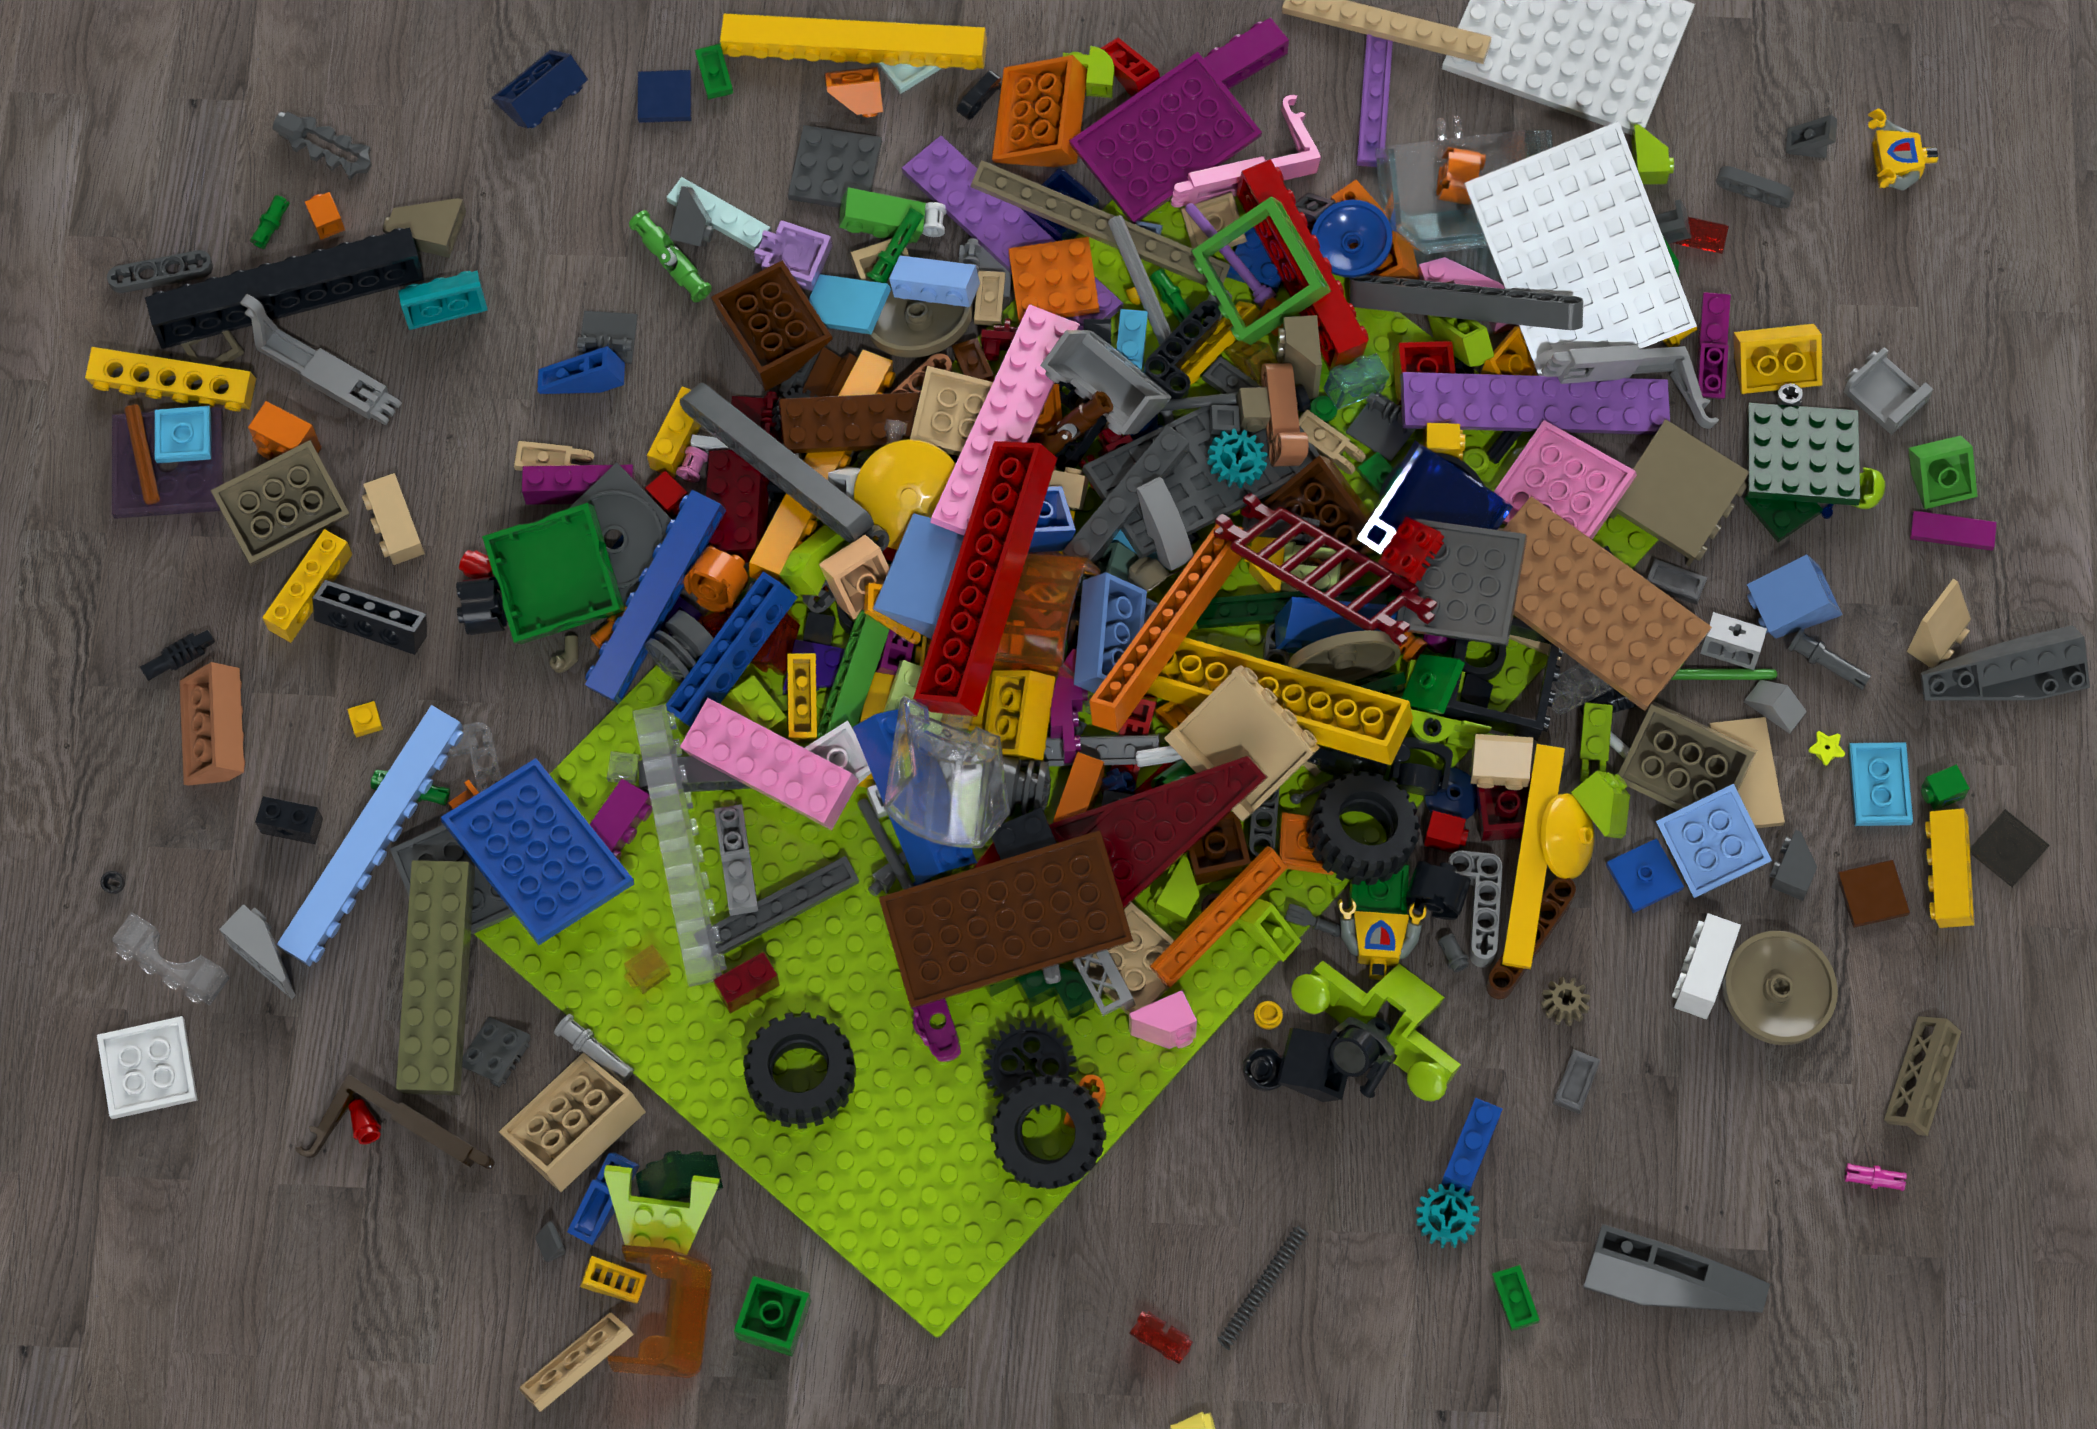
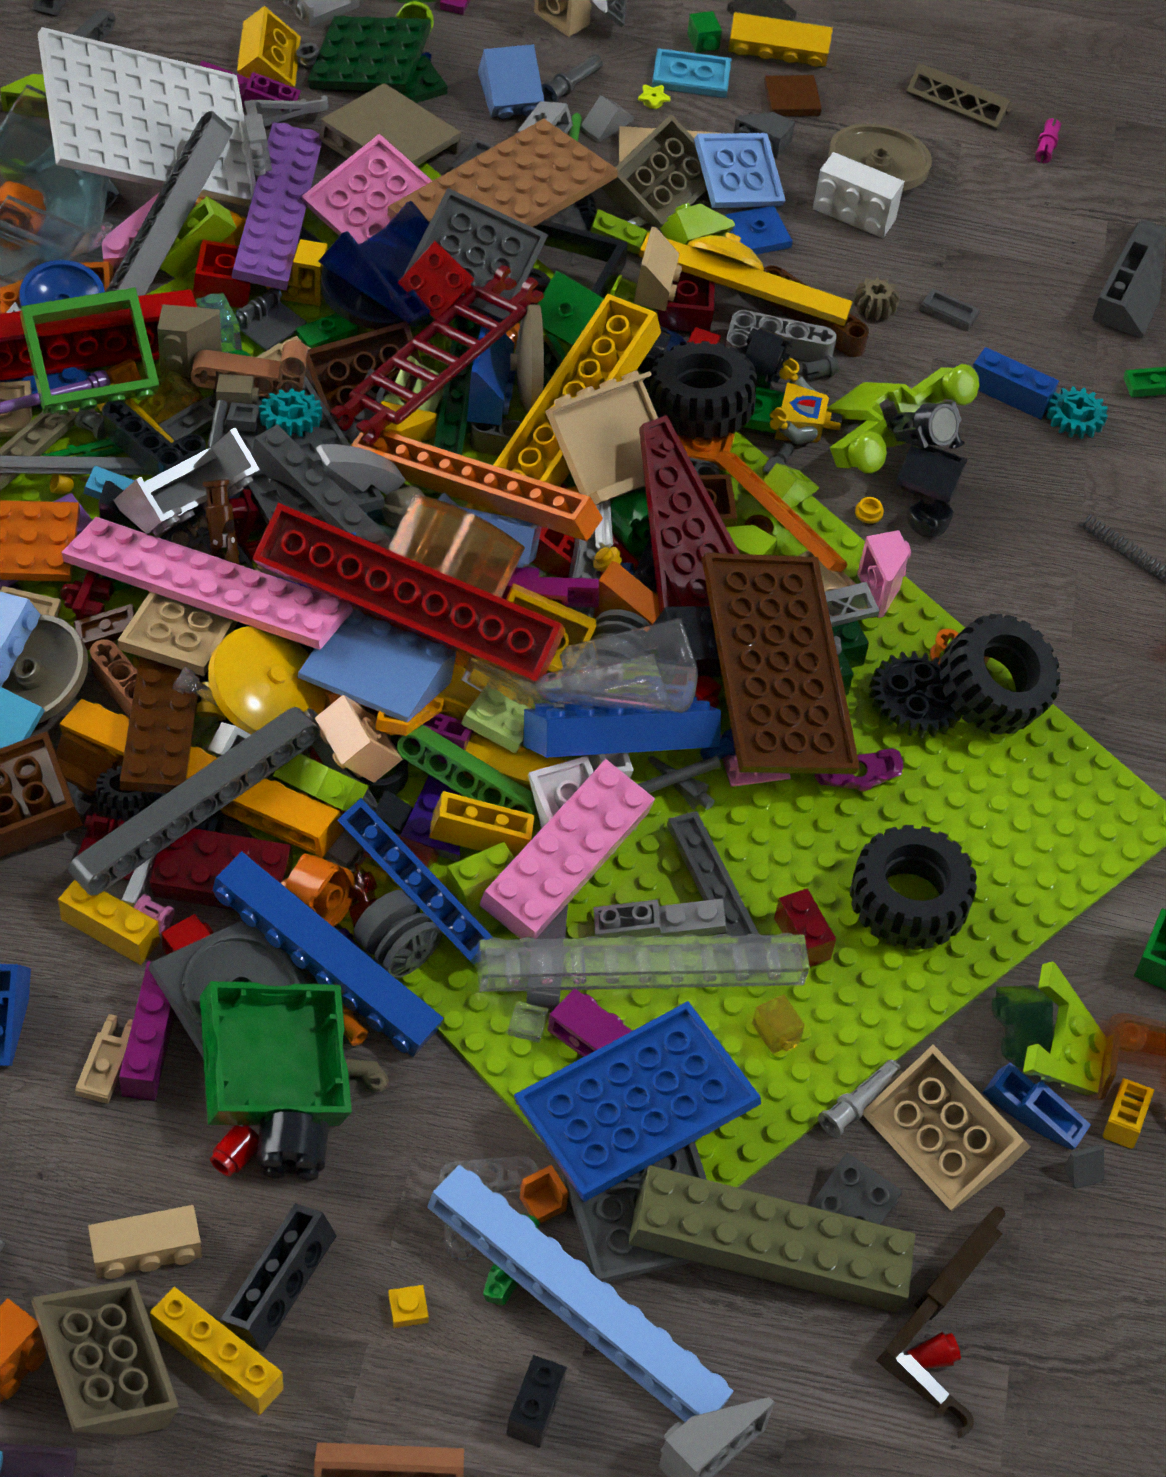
camera: 90 degrees left, 15 degrees down
(1121, 764) = (605, 557): none -> yellow plate

